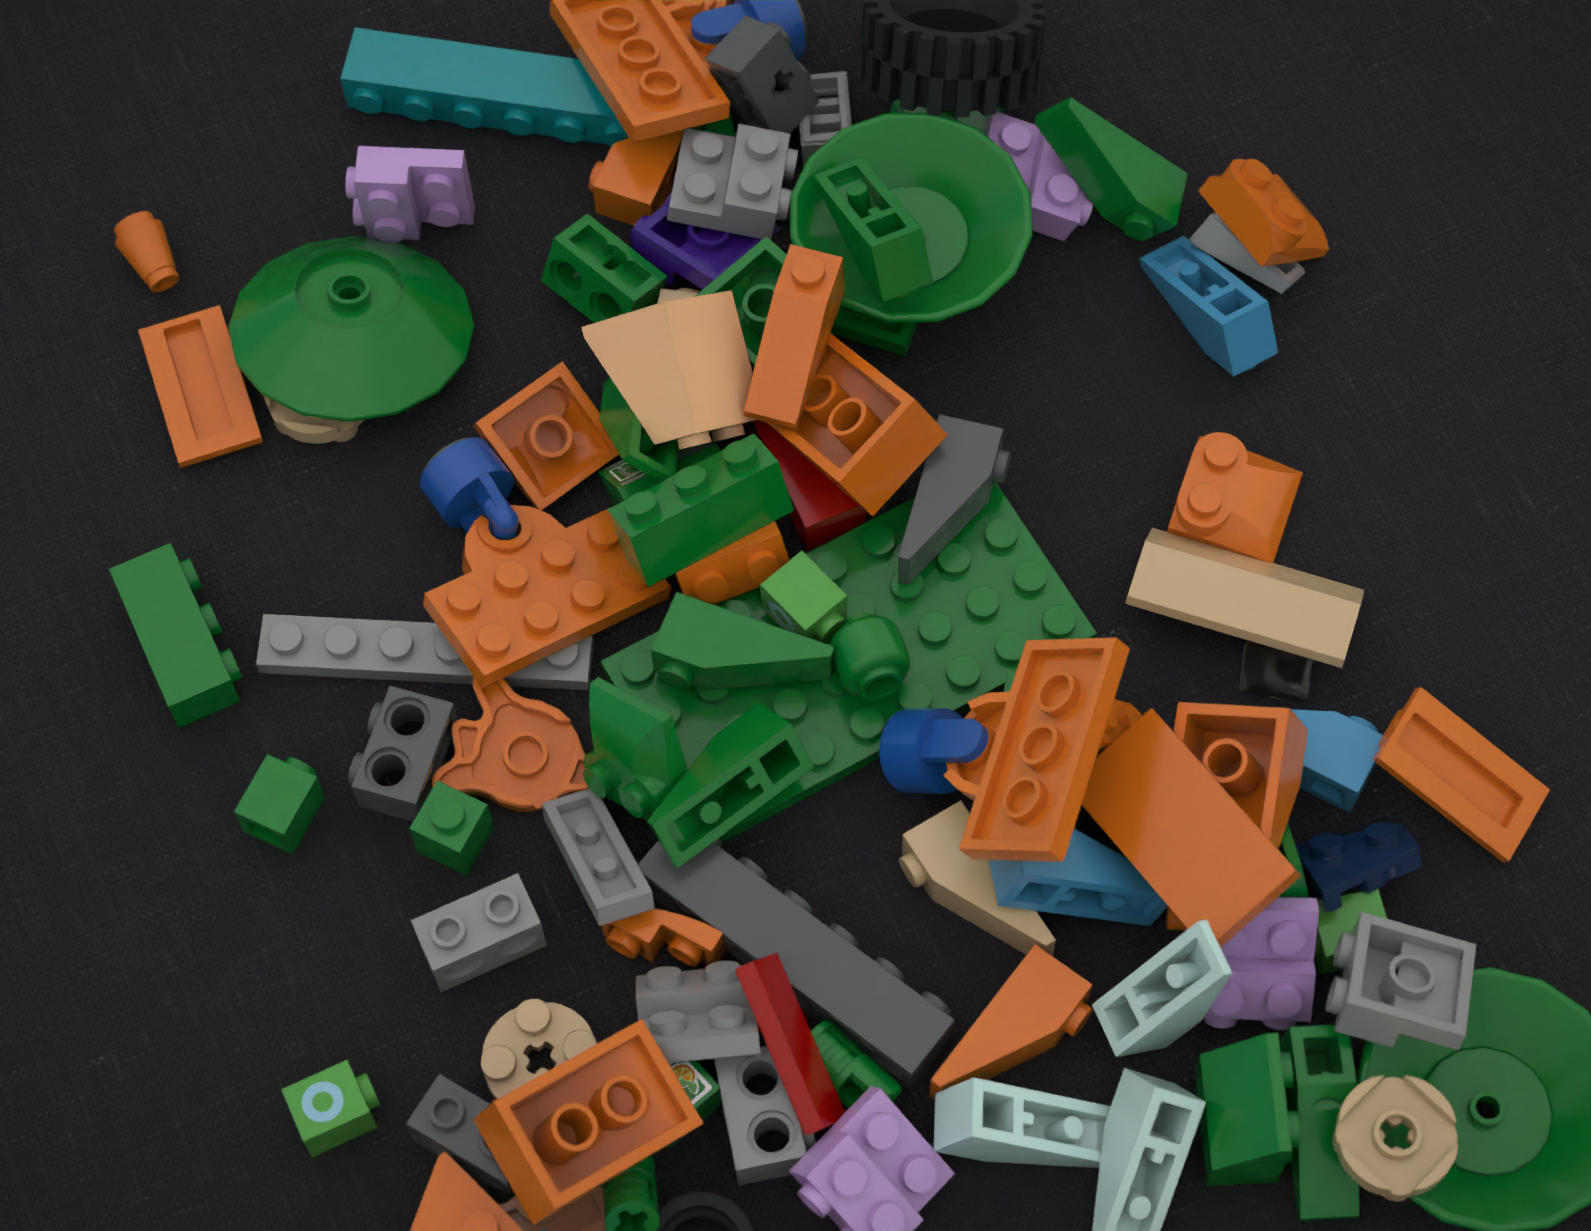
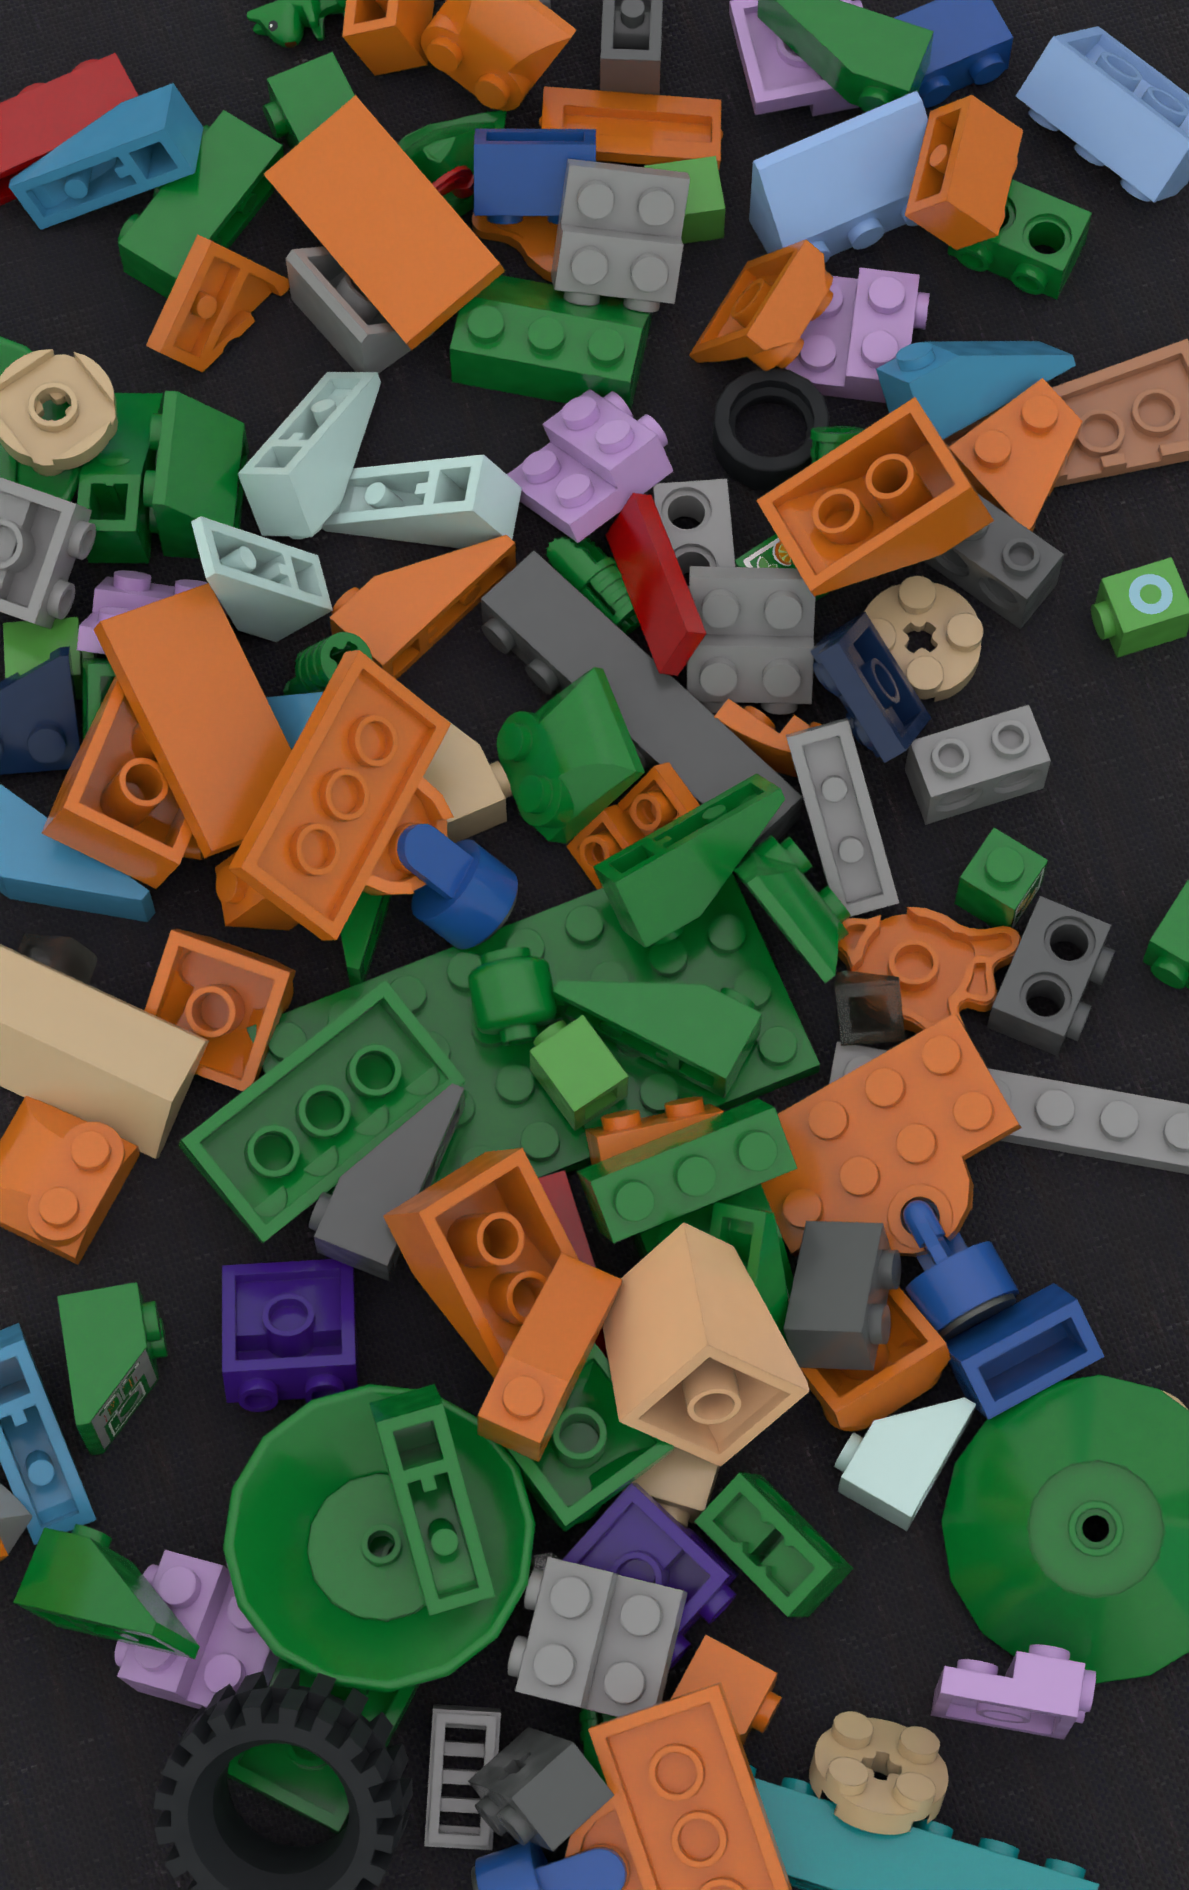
camera: 175 degrees left, 5 degrees up
(407, 435) = (1022, 1350): none -> blue brick
(504, 360) = (902, 1459): none -> light aqua slope
(530, 114) = (907, 1755): none -> tan plate
(562, 699) = (869, 1008): none -> clear smoke slope
(564, 453) = (841, 1295): none -> dark grey brick
(580, 963) = (872, 687): none -> dark blue plate
(785, 837) = (646, 808): none -> orange slope
(852, 878) = (569, 757): none -> green slope
(1016, 389) = (288, 1331): none -> dark purple plate
(1018, 553) = (320, 1111): none -> green slope
(1083, 936) = (318, 662): none -> green hinge
(1152, 639) = (218, 995): none -> orange slope
(1155, 344) = (110, 1357): none -> green slope

